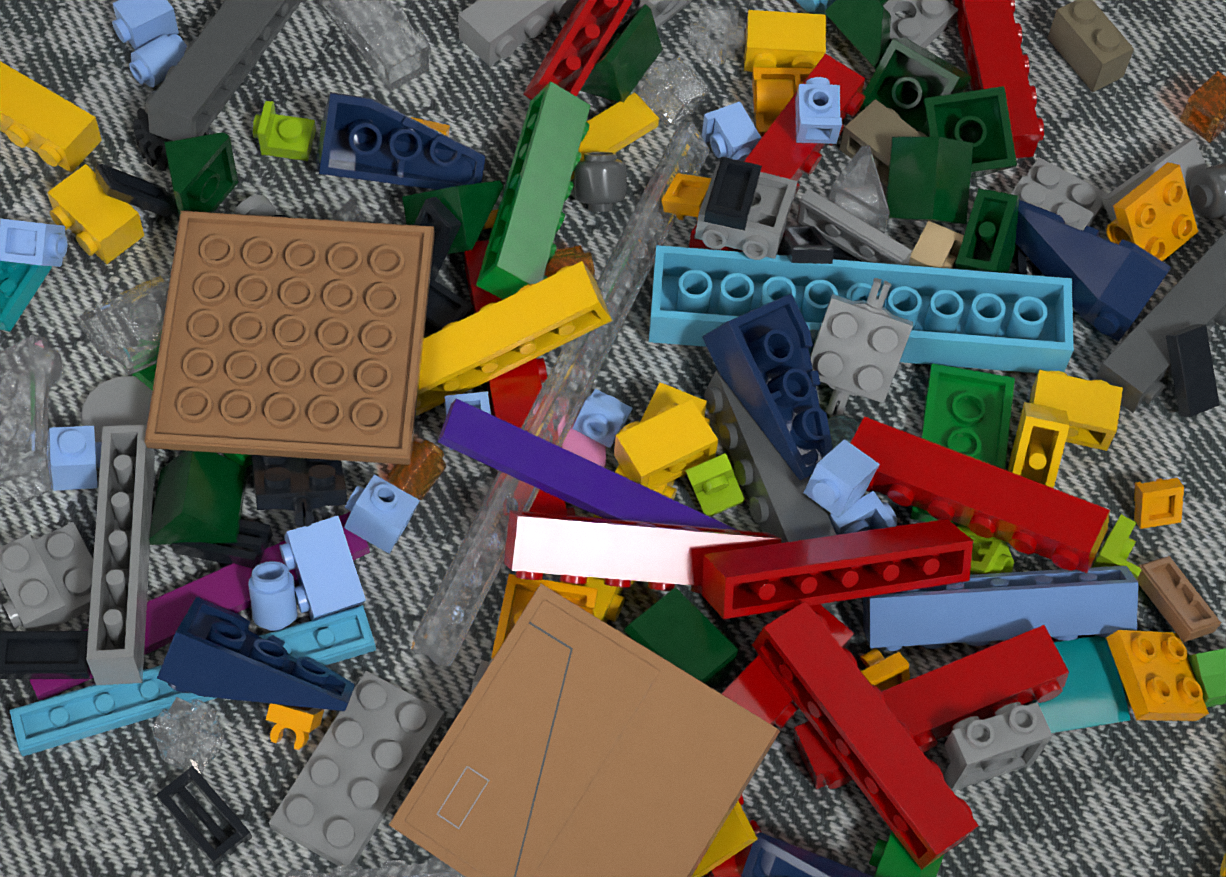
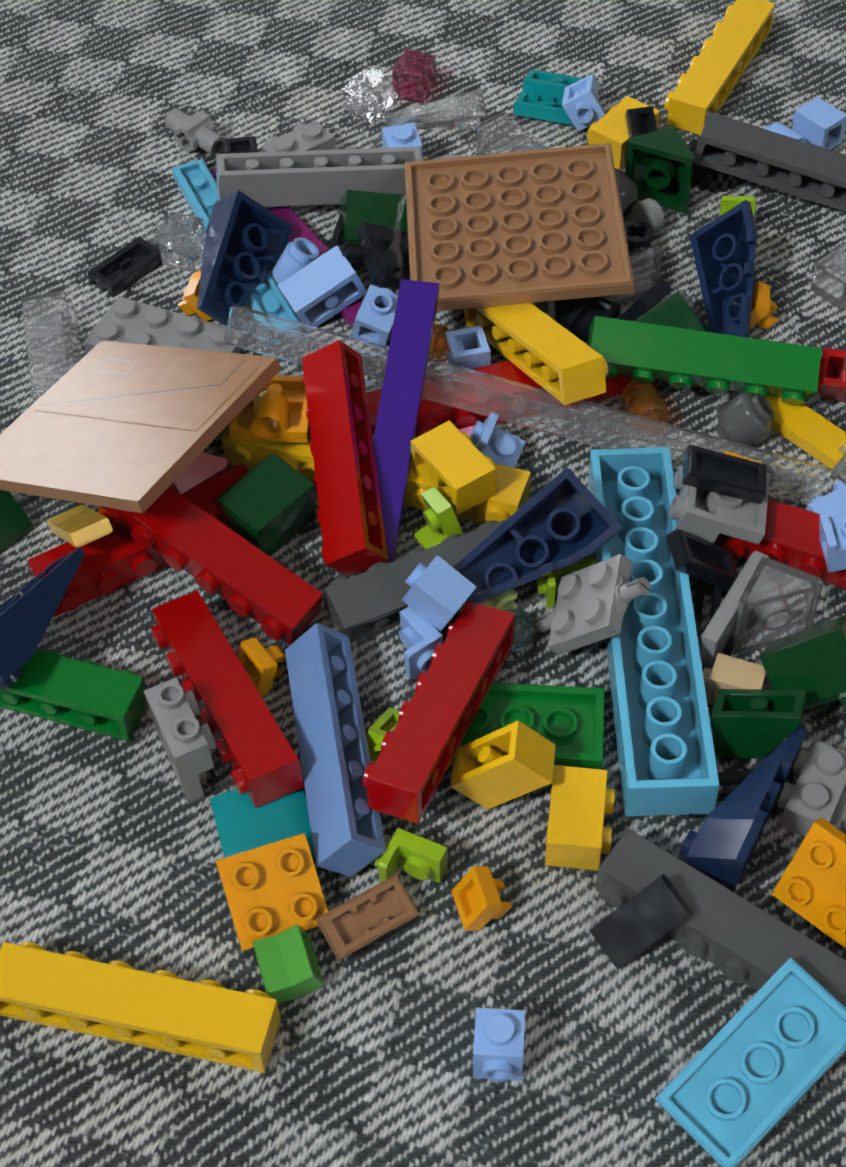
camera: 90 degrees right, 10 degrees down
(836, 568) = (339, 591): red brick -> none
(865, 734) = (174, 618): red brick -> none

